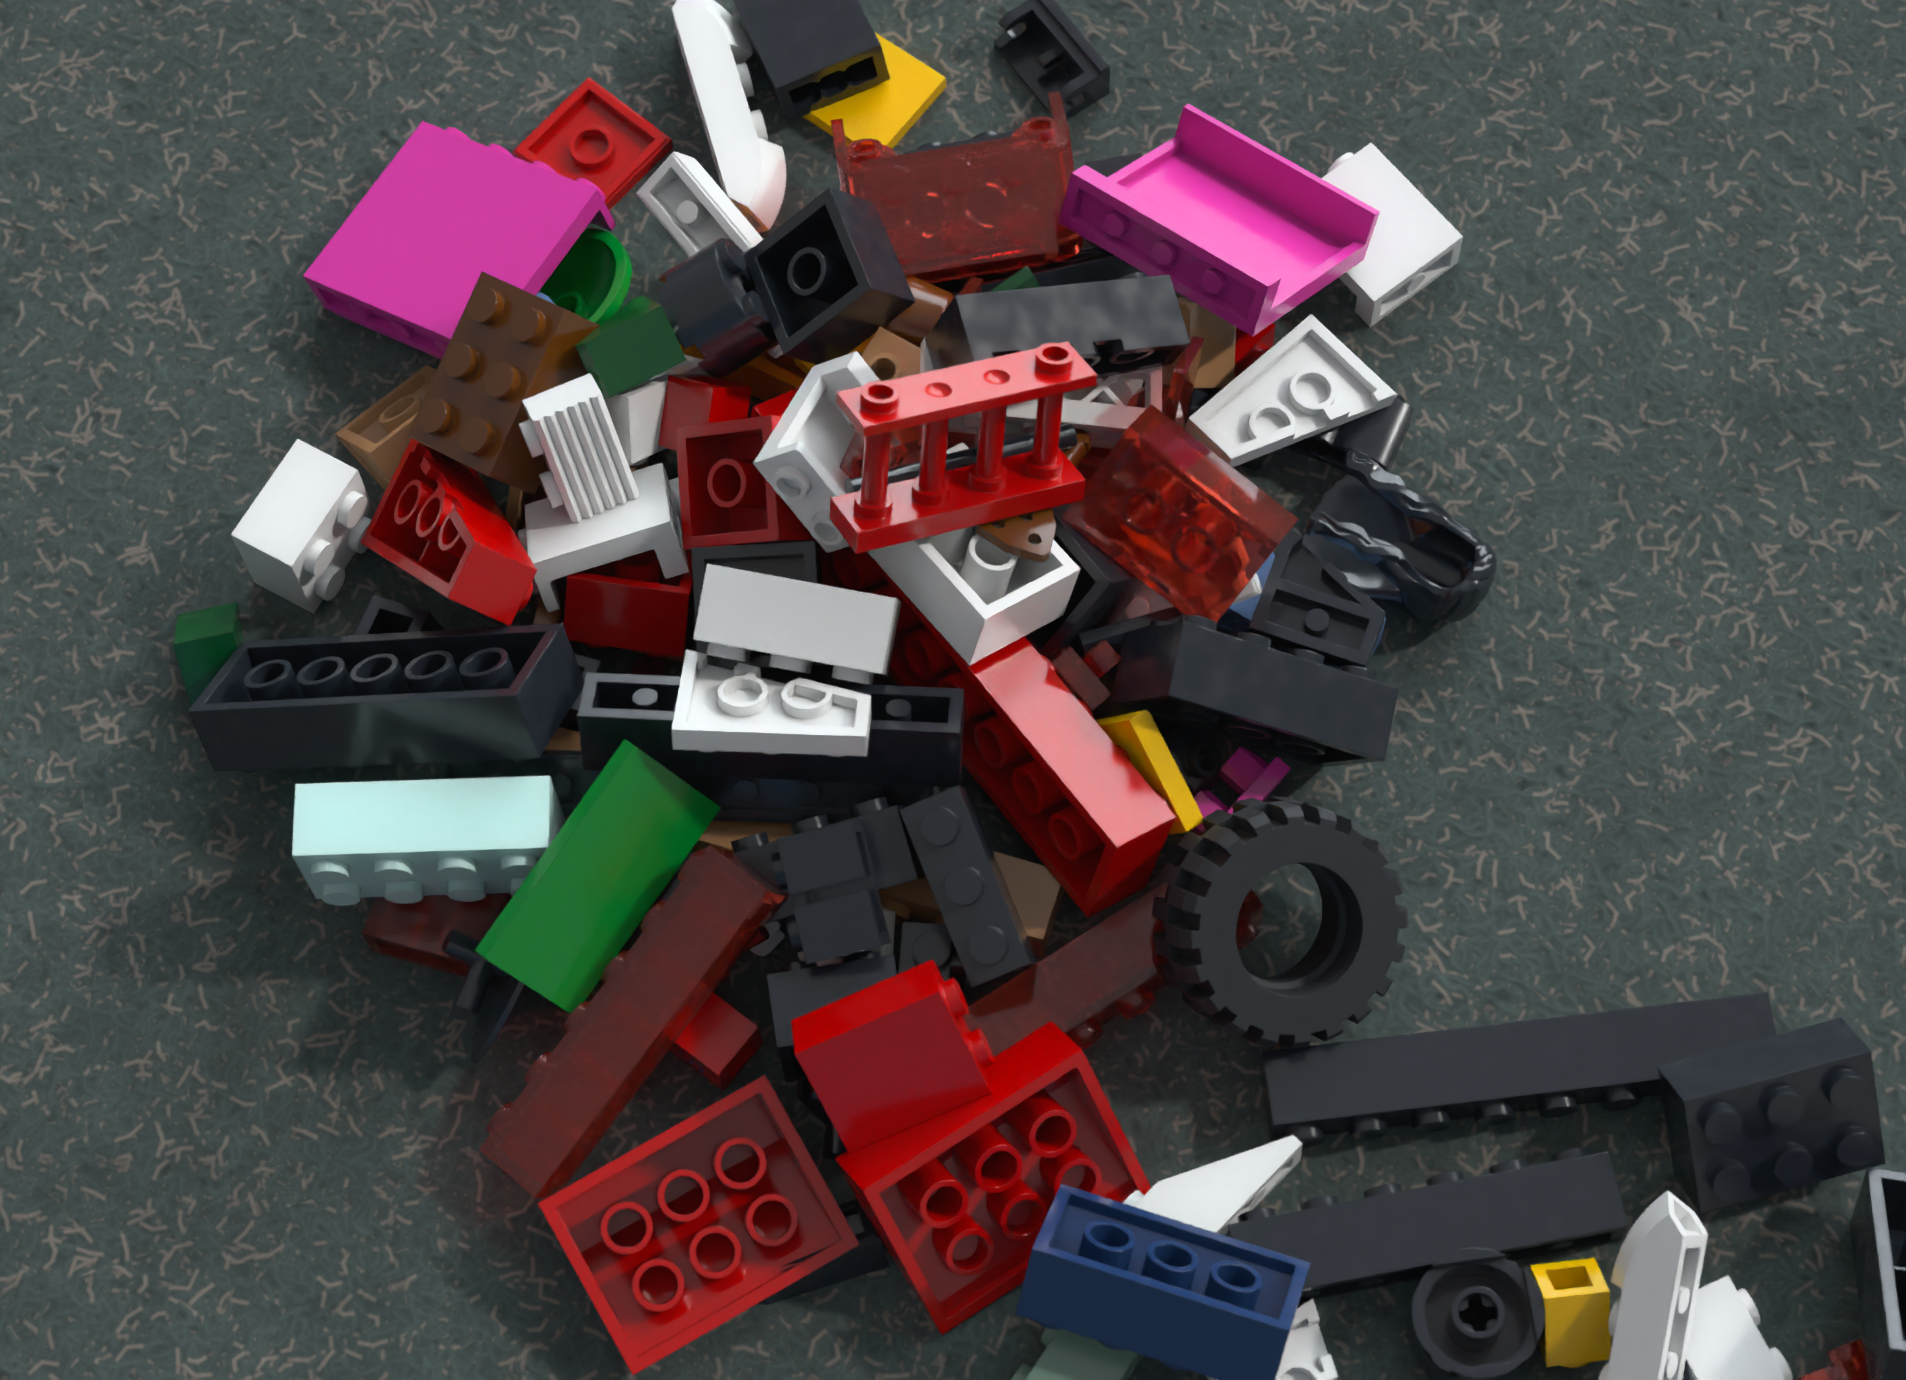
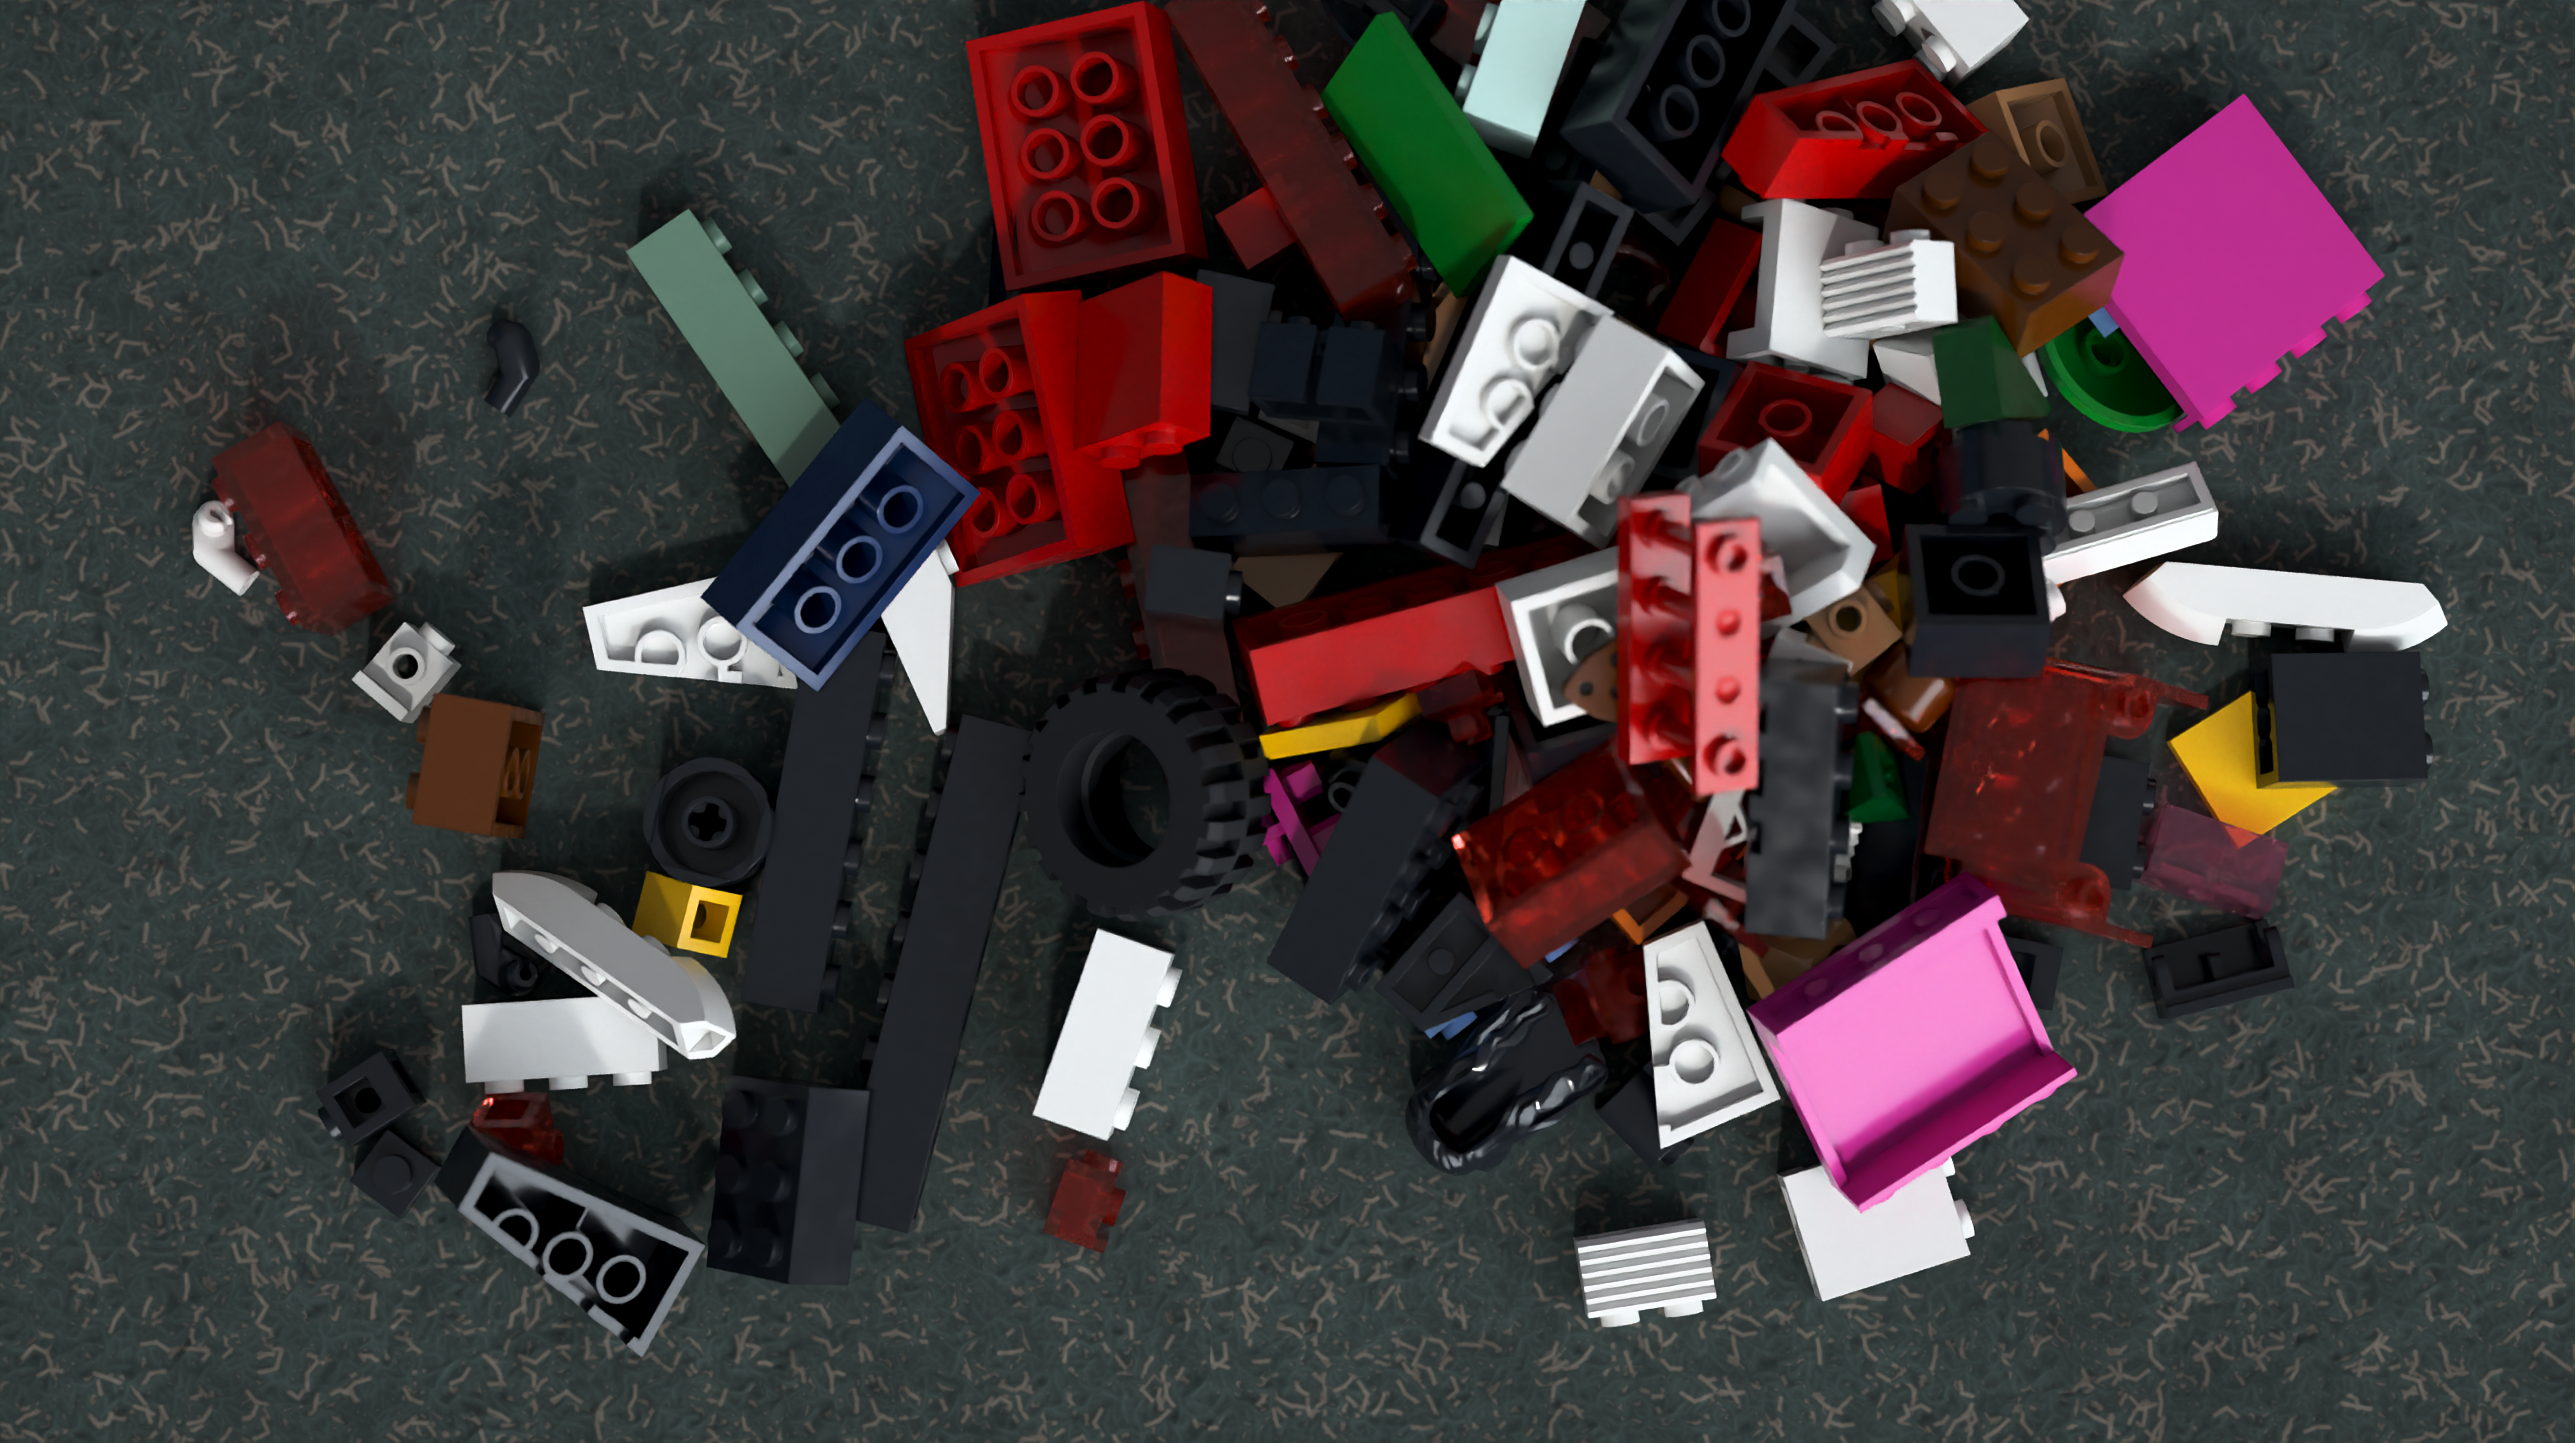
camera: 110 degrees right, 20 degrees up
(596, 140) = (2298, 450): red tile -> none
(964, 84) = (2213, 863): none -> clear pink hinge
(1075, 942) = (1192, 586): none -> black piece
(1292, 482) = (1605, 998): none -> clear red brick
(1500, 389) = (1644, 1271): none -> white brick
(1508, 886) = (1107, 1035): none -> white brick
(1662, 860) = (1086, 1200): none -> clear red brick

